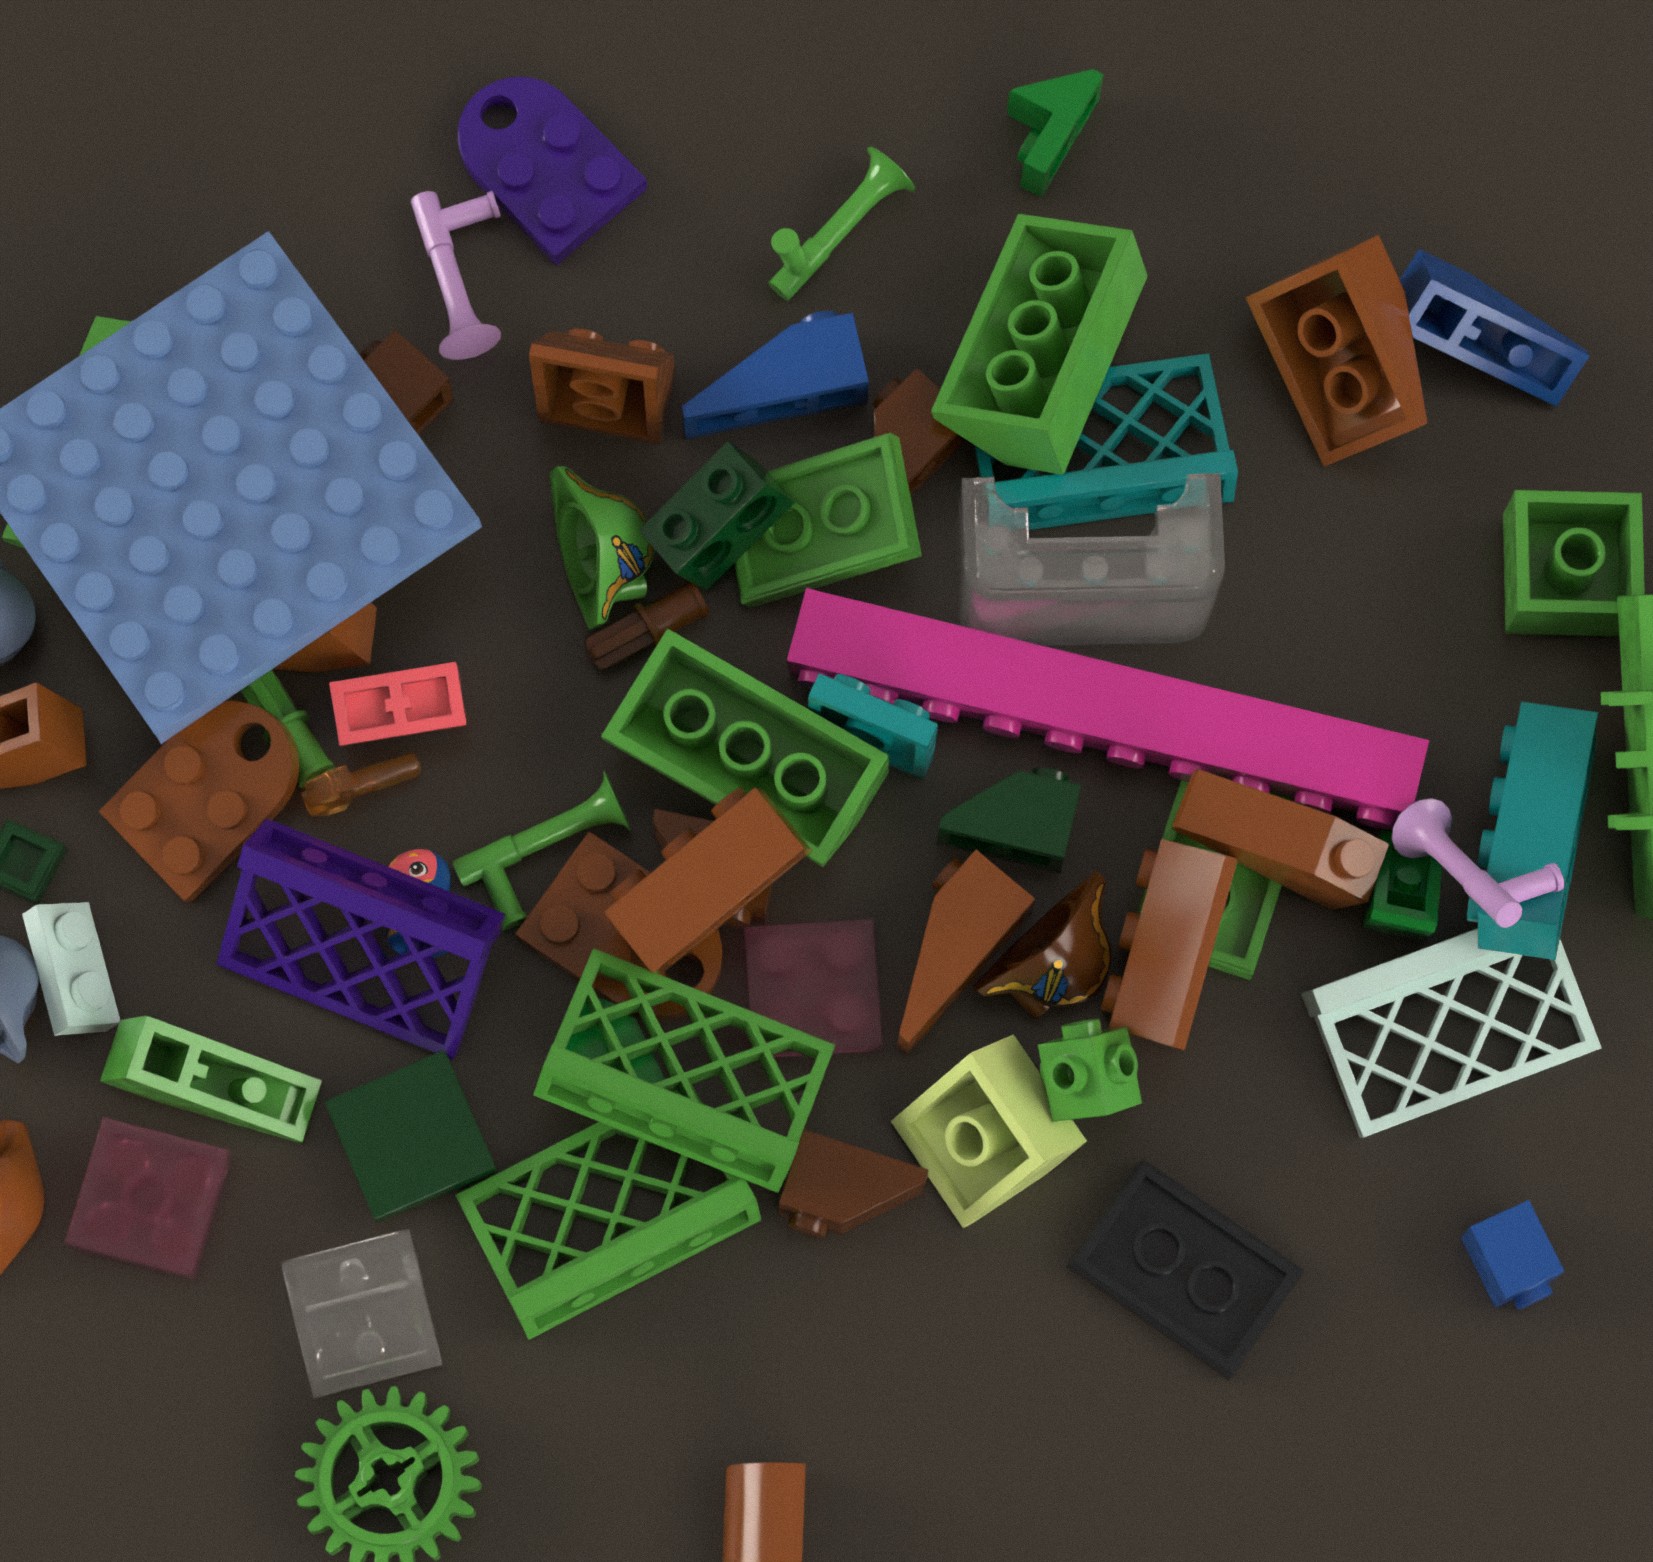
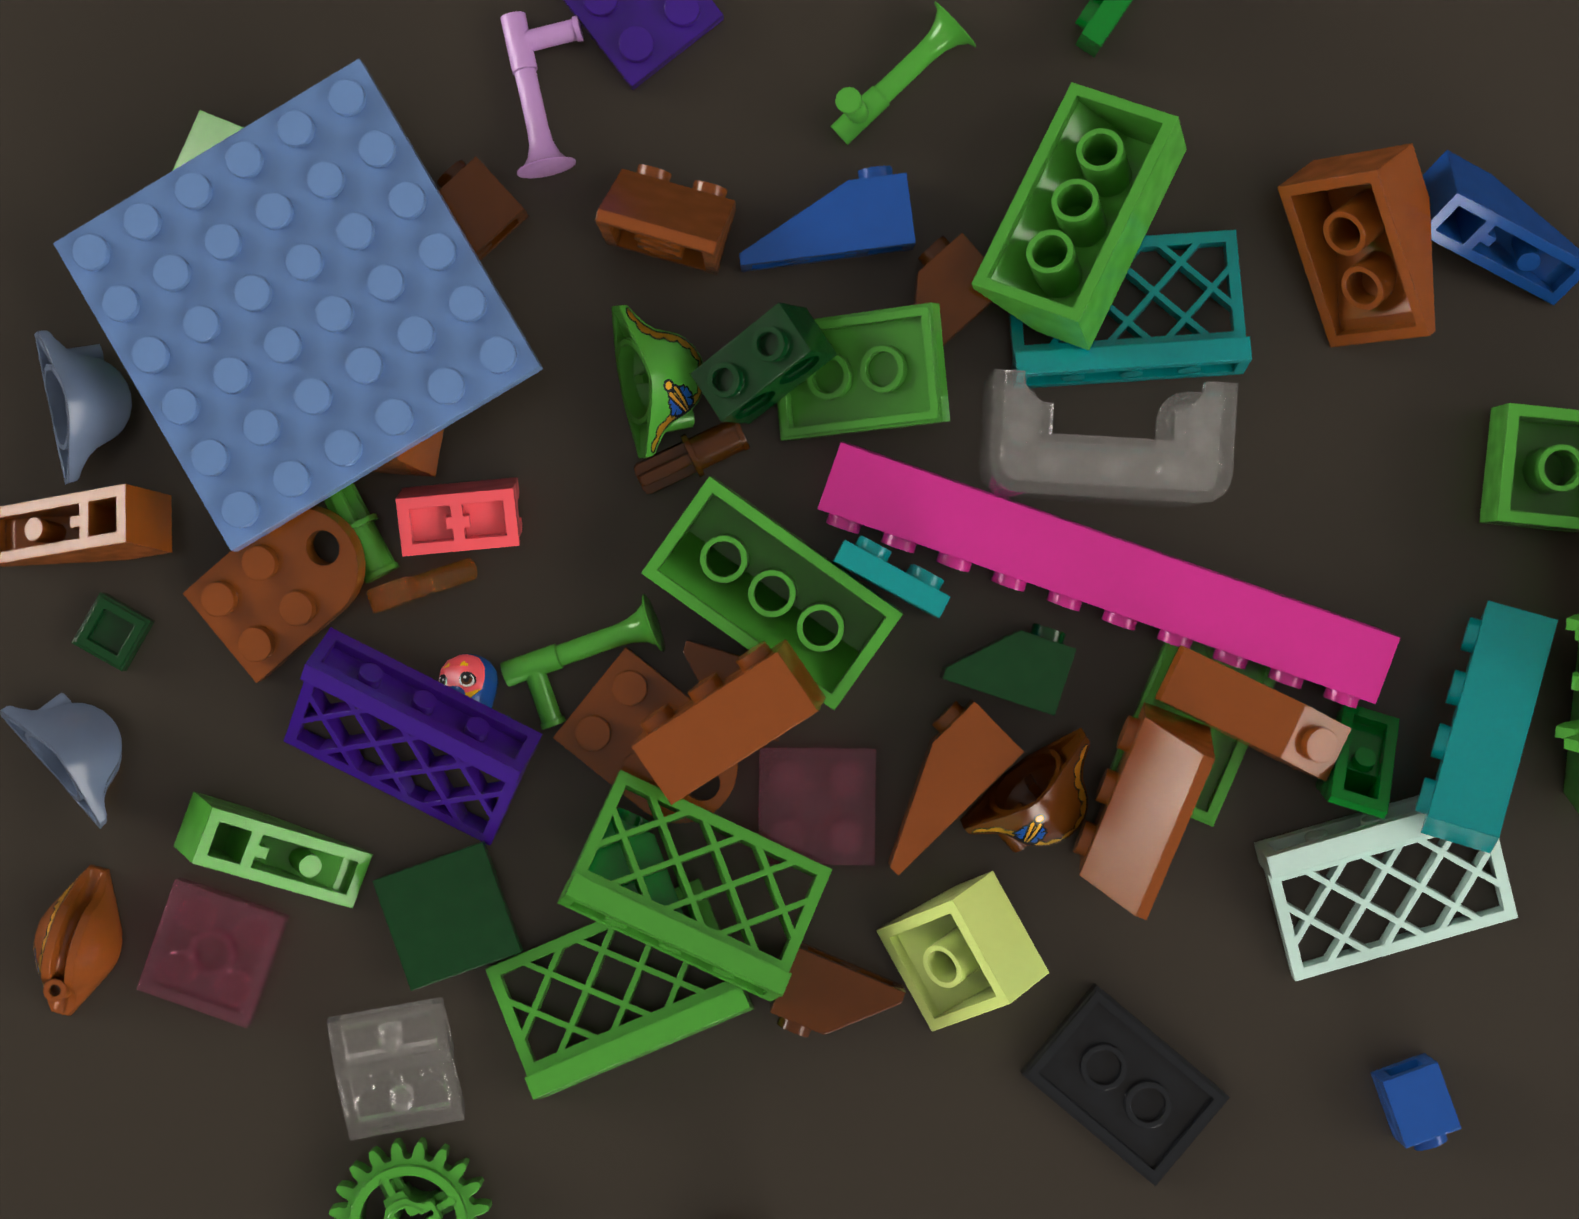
camera: 10 degrees right, 15 degrees up
(71, 968) = (152, 739): light aqua plate -> none
(1089, 1071) = (1058, 919): bright green brick -> none
(1425, 831) = (1385, 718): lavender piece -> none

